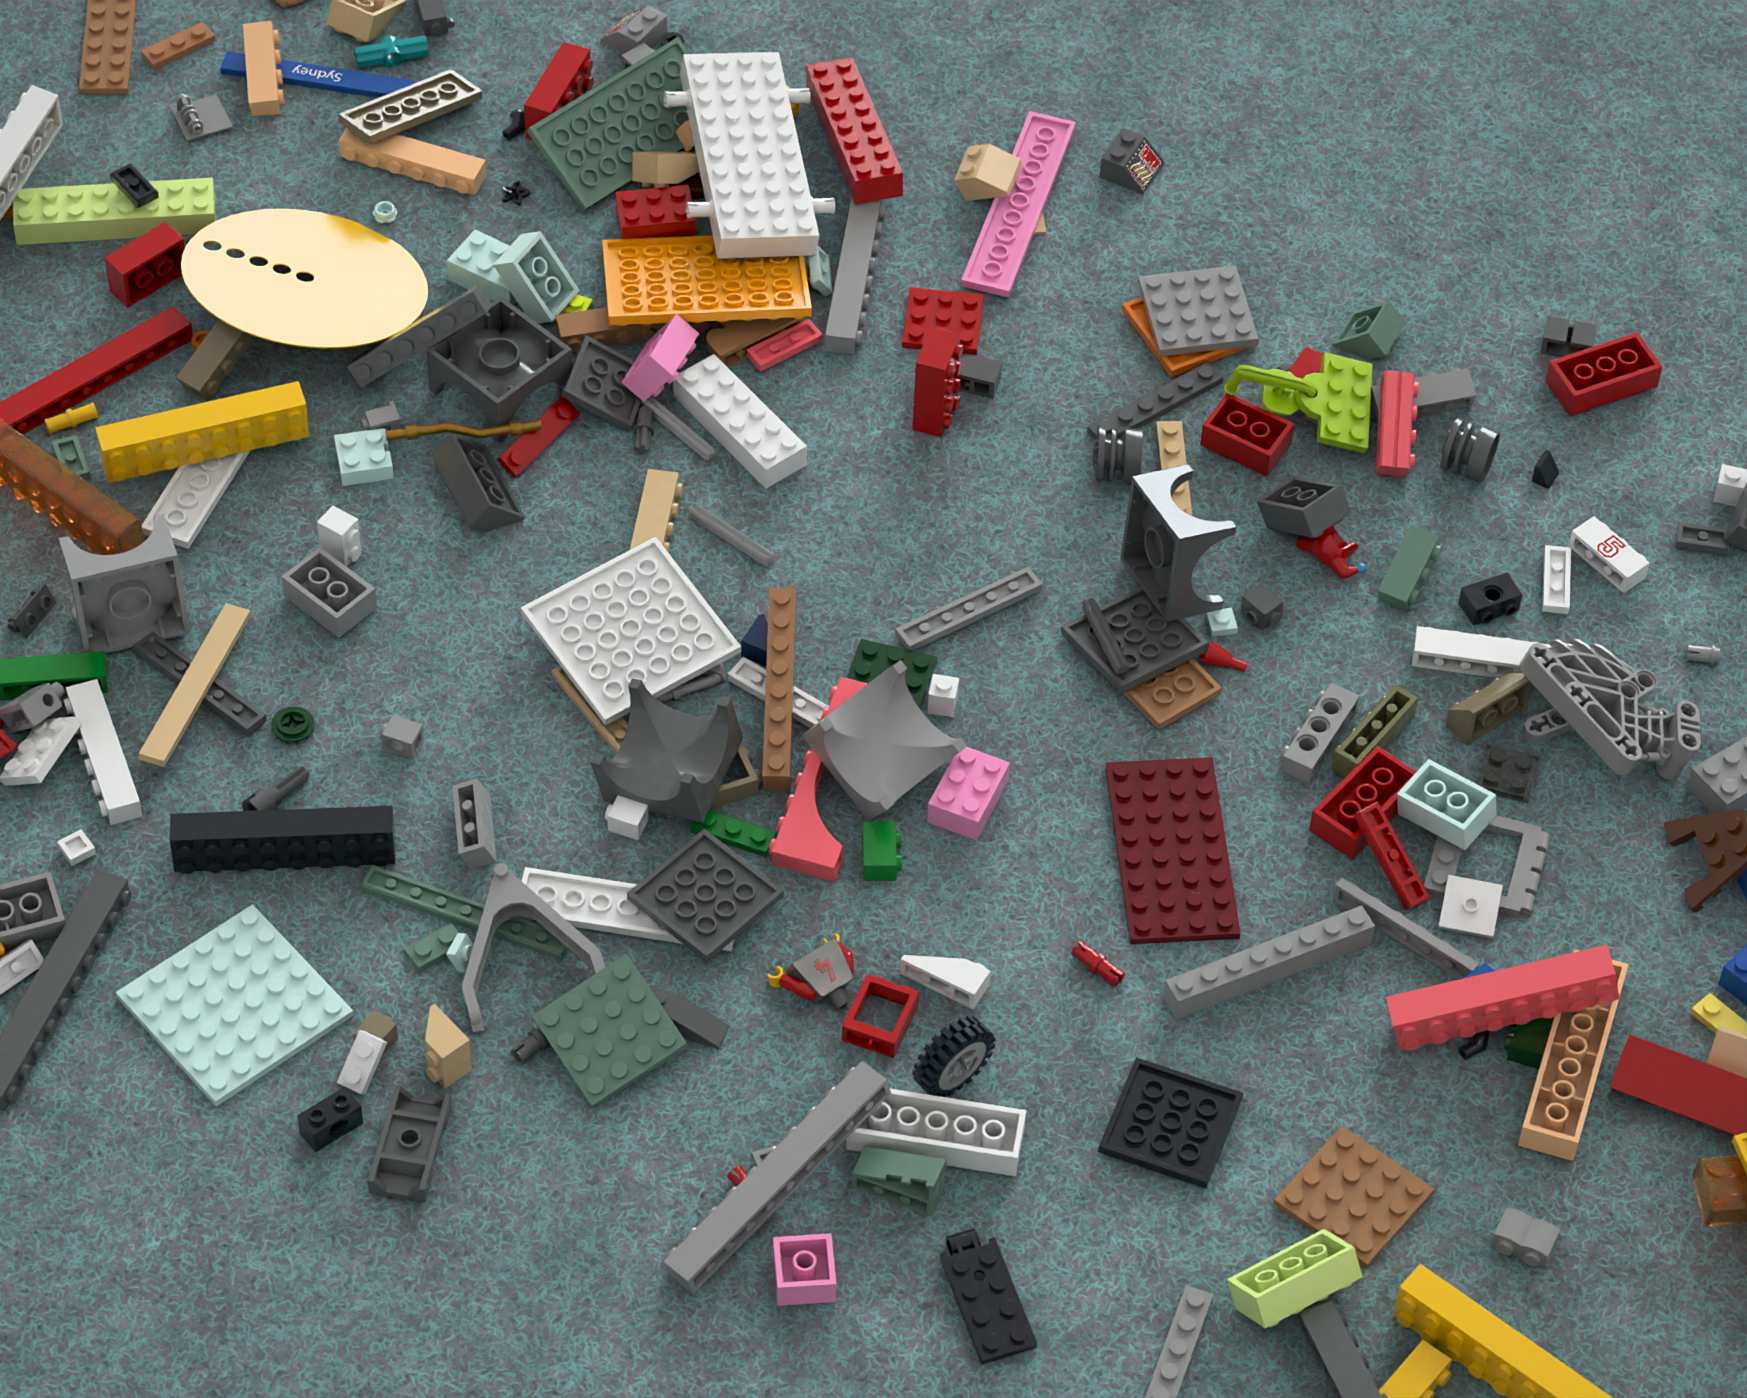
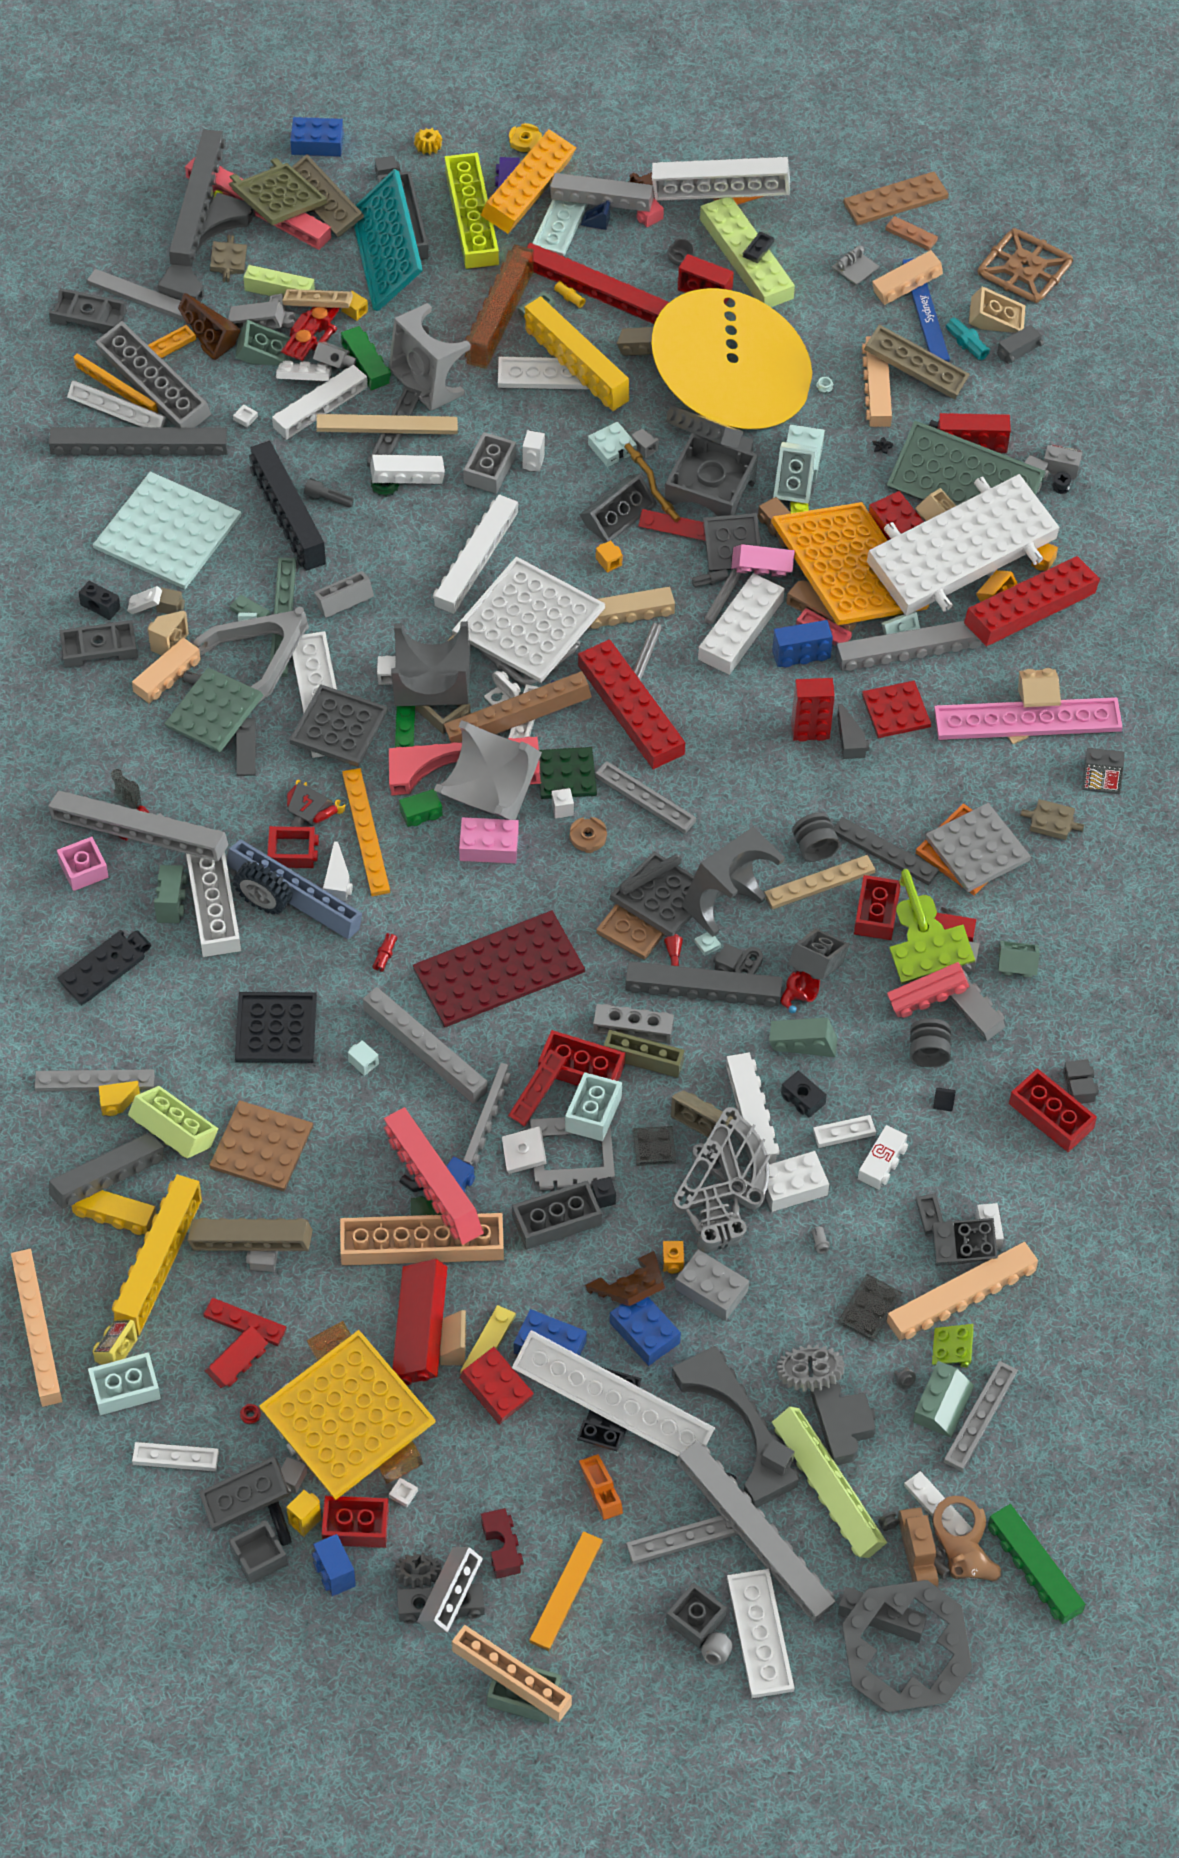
camera: 70 degrees right, 5 degrees up
(71, 273) = (679, 250): none -> dark grey hair
(291, 686) = (407, 469): none -> white brick
(402, 736) = (398, 538): light grey brick -> none
(475, 659) = (475, 554): none -> white brick
(501, 1076) = (166, 670): none -> light nougat brick
(555, 520) = (609, 556): none -> light orange brick
(708, 697) = (504, 686): none -> white bracket
(711, 1174) = (126, 790): none -> clear smoke plate
(810, 367) = (802, 643): none -> blue brick
(816, 160) = (996, 584): none -> light orange brick
(817, 572) = (631, 704): none -> red brick
(885, 927) = (366, 832): none -> light orange plate
(994, 1008) = (306, 895): none -> sand blue brick
(996, 699) = (585, 843): none -> medium nougat plate
(1178, 234) = (1052, 819): none -> dark tan plate
(1219, 1342) = (117, 1097): none -> yellow slope
(1261, 1037) = (363, 1057): none -> light aqua brick
(1277, 586) = (747, 965): none -> dark grey plate
(1287, 643) = (703, 984): none -> dark grey brick
(1516, 1232) = (250, 1234): none -> dark tan brick
(1566, 843) = (604, 1192): none -> black brick
(1585, 898) = (556, 1215): none -> dark grey brick
(1619, 633) = (795, 1181): none -> white brick
(1625, 1295) = (241, 1319): none -> red plate
(1682, 802) = (673, 1256): none -> light orange brick
(1686, 1315) = (236, 1357): none -> red brick

